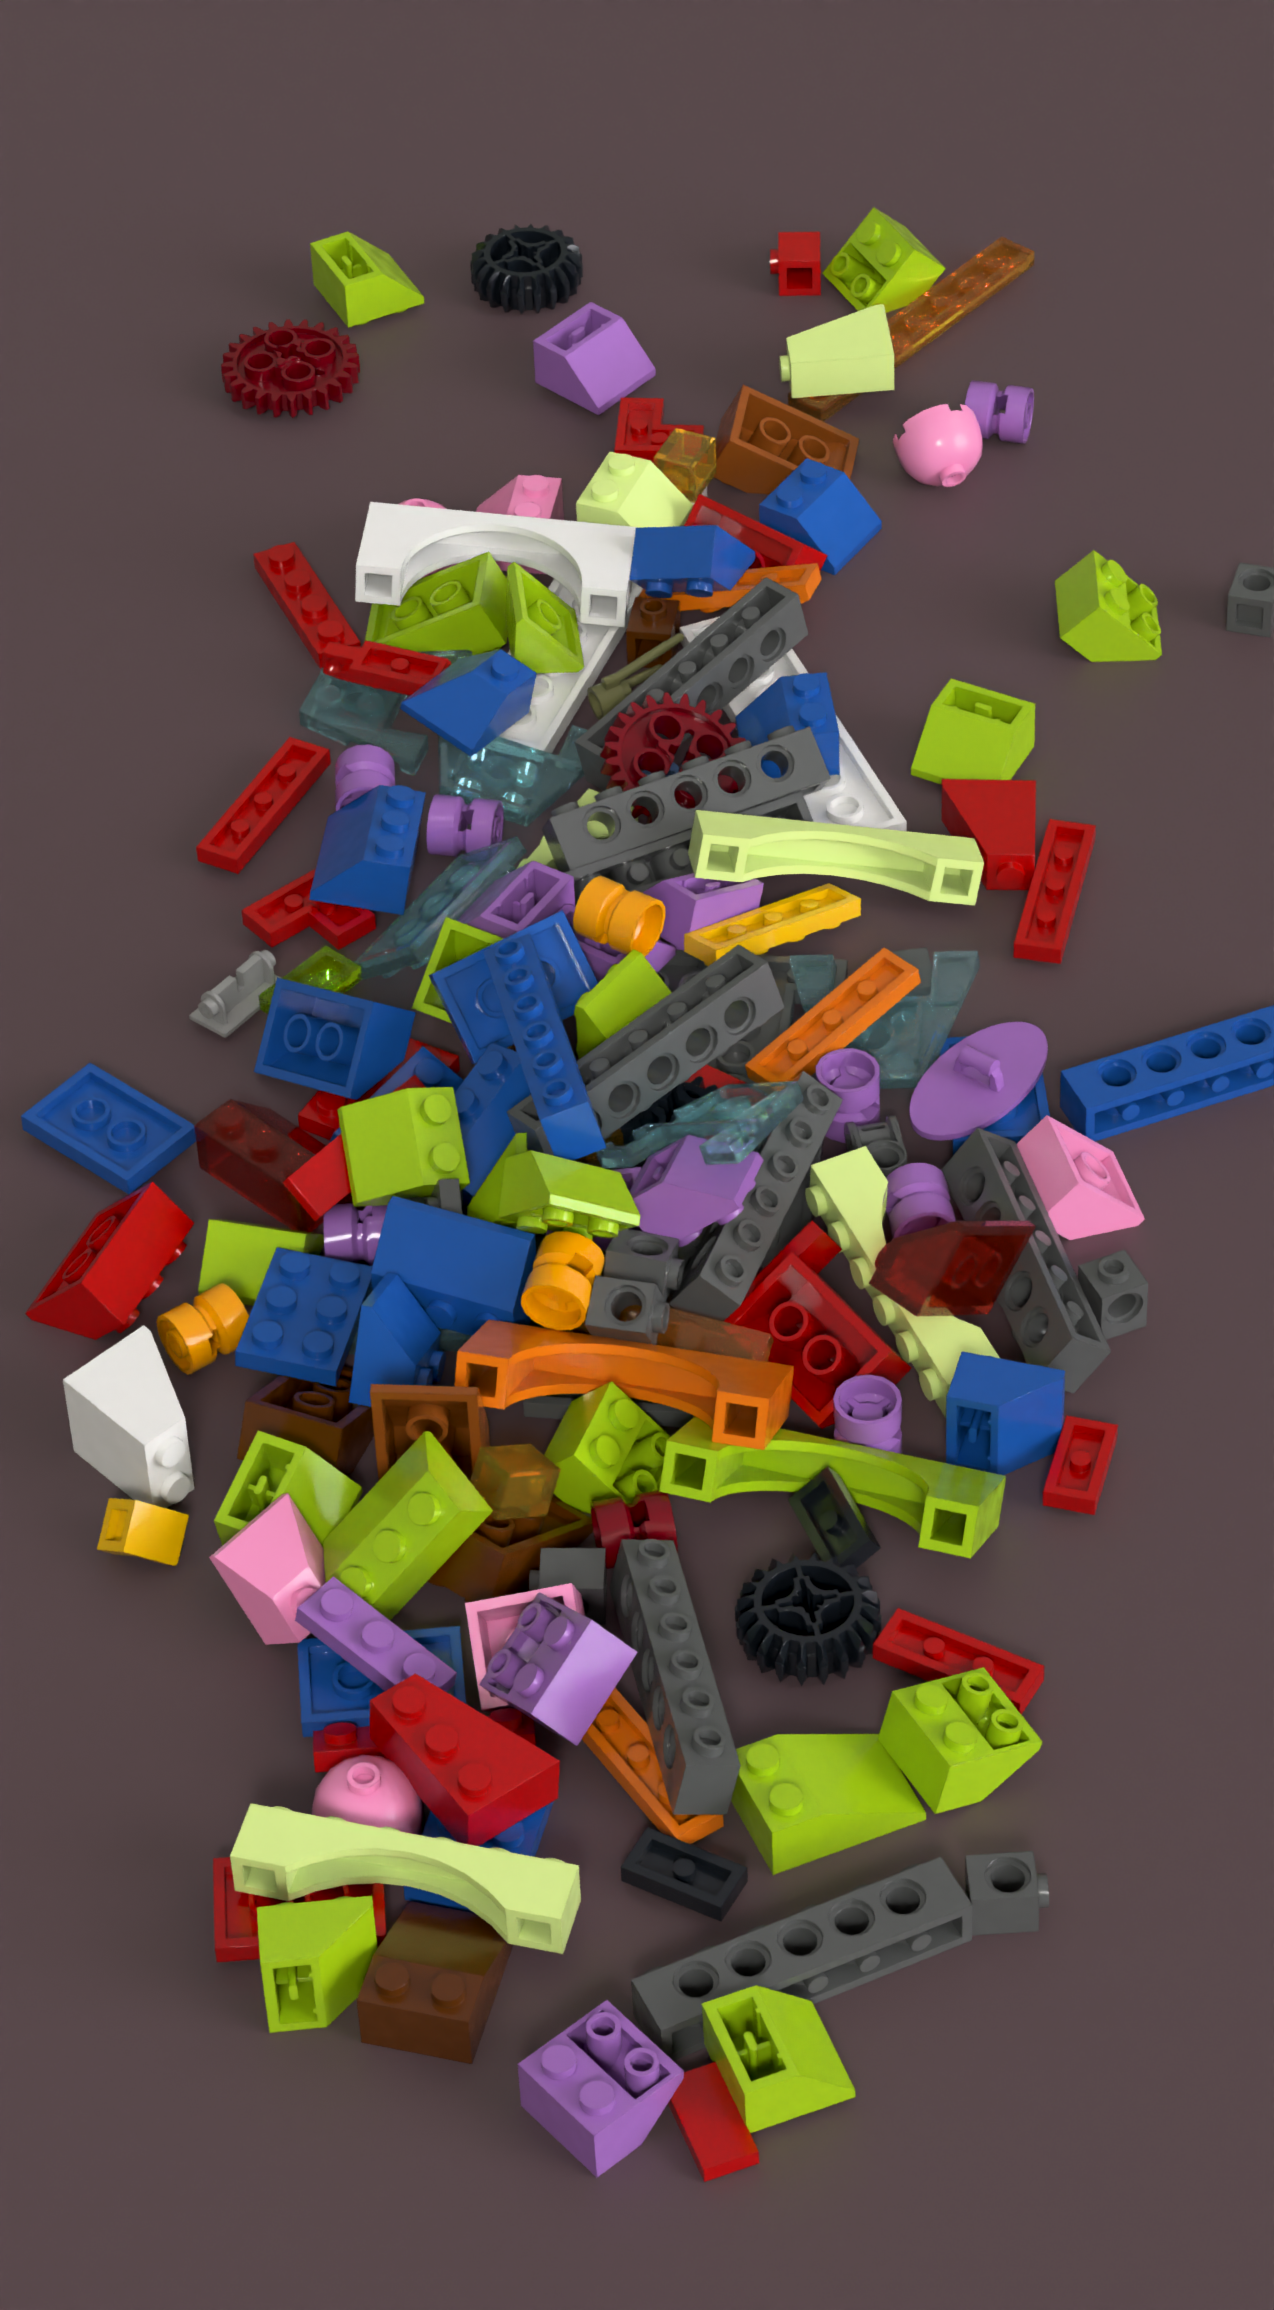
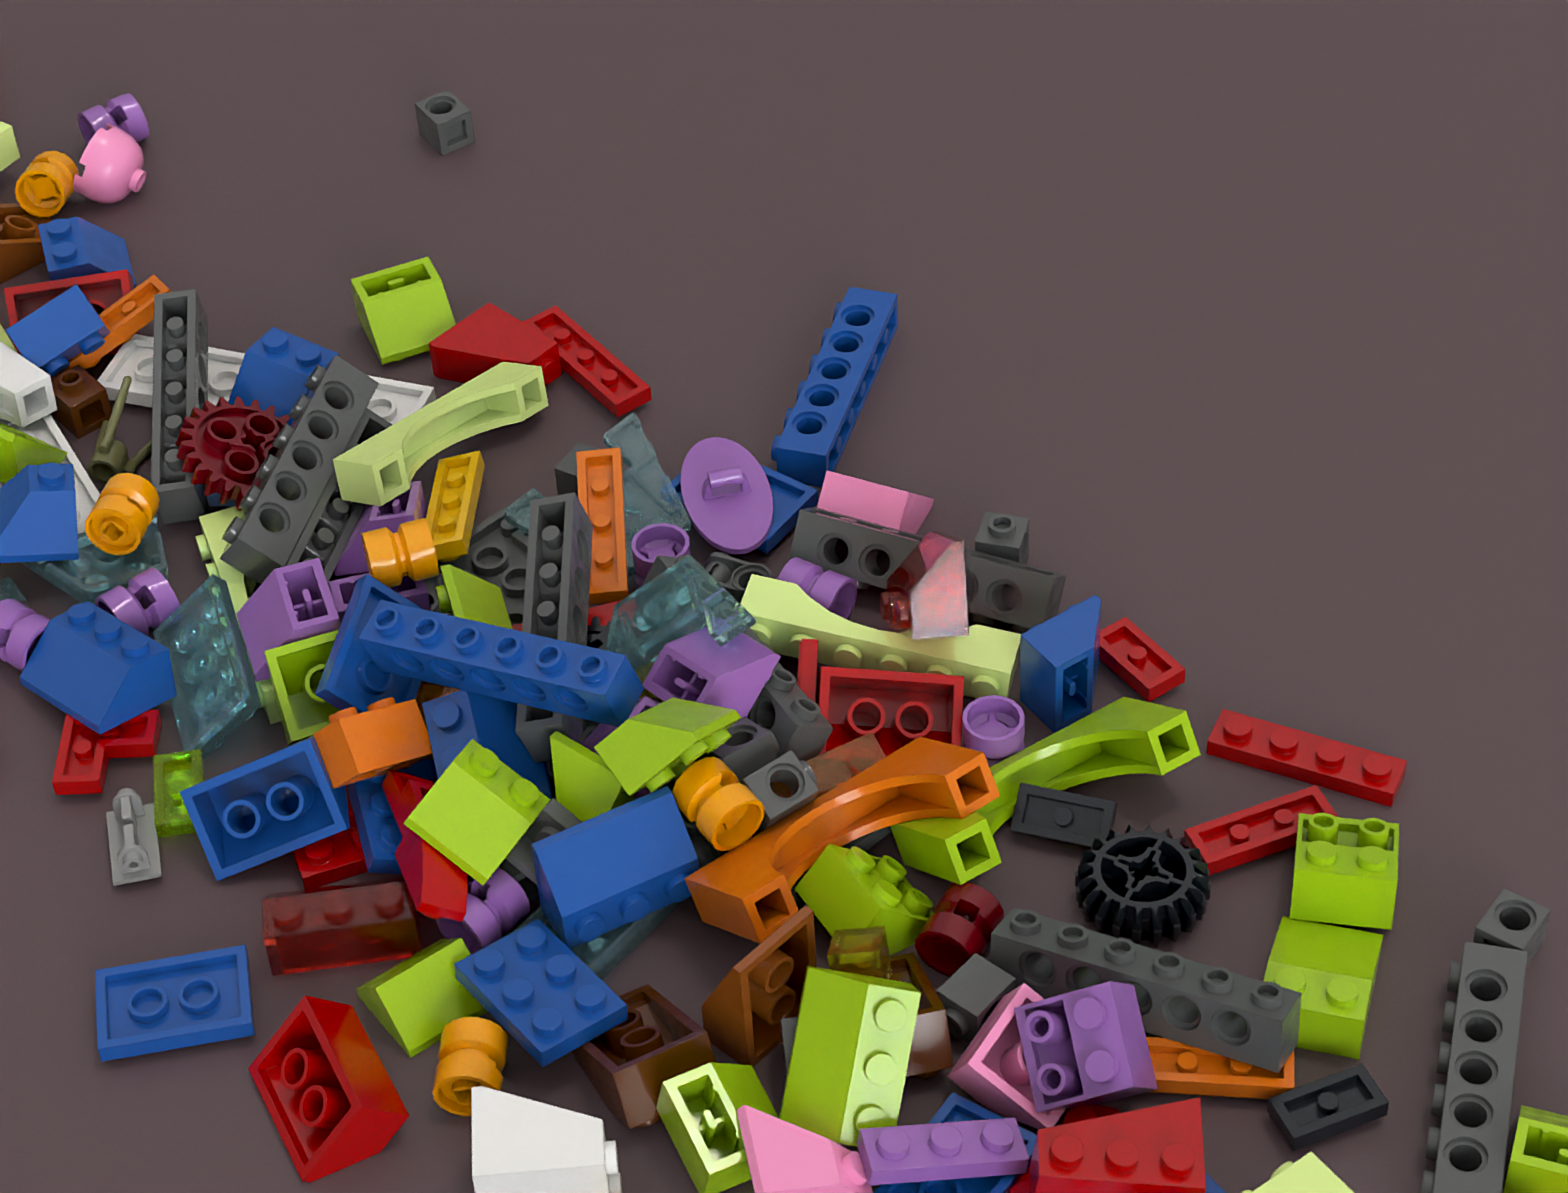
camera: 50 degrees left, 0 degrees up
(394, 1342) = (646, 961): blue slope -> none
(425, 1043) = (373, 741): none -> orange brick
(534, 742) = (122, 514): none -> light orange wheel
(869, 427) = (46, 184): none -> light orange wheel
(1089, 1649) = (1307, 757): none -> red plate
(1107, 612) = (365, 187): lime slope -> none

